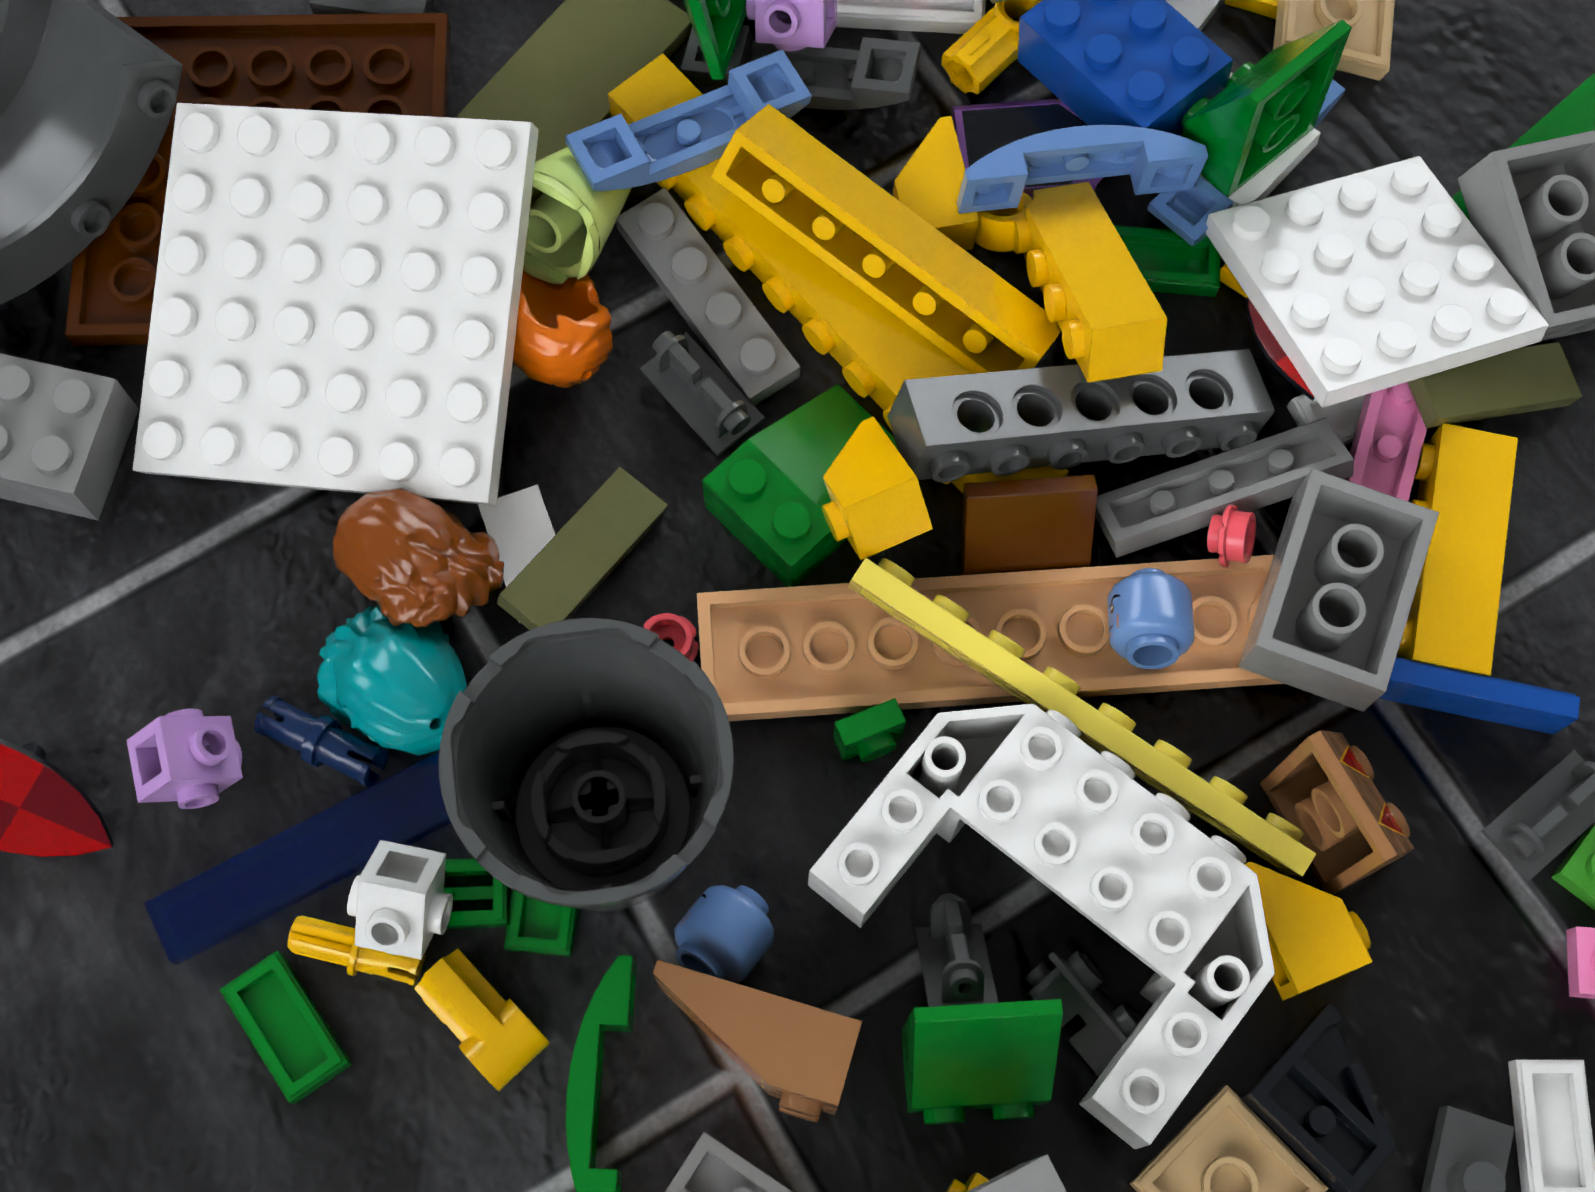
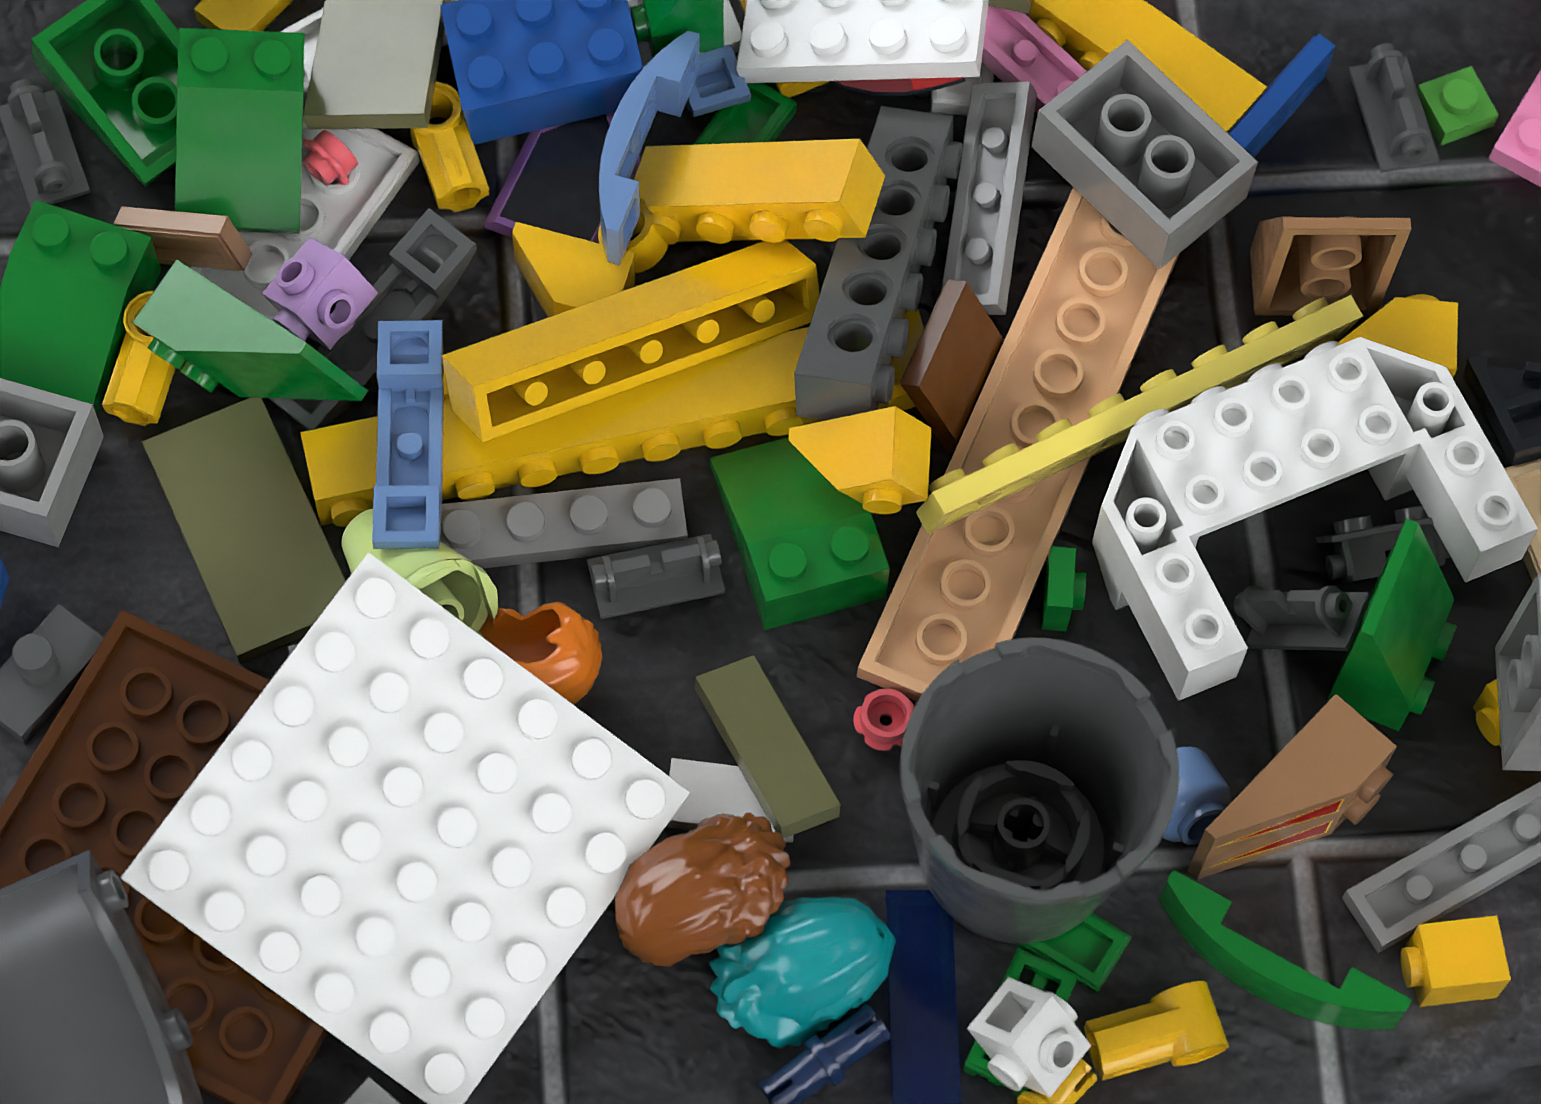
camera: 65 degrees left, 5 degrees down
(1150, 618) = (1087, 309): medium blue head -> none
(1232, 535) = (1042, 211): coral plate -> none

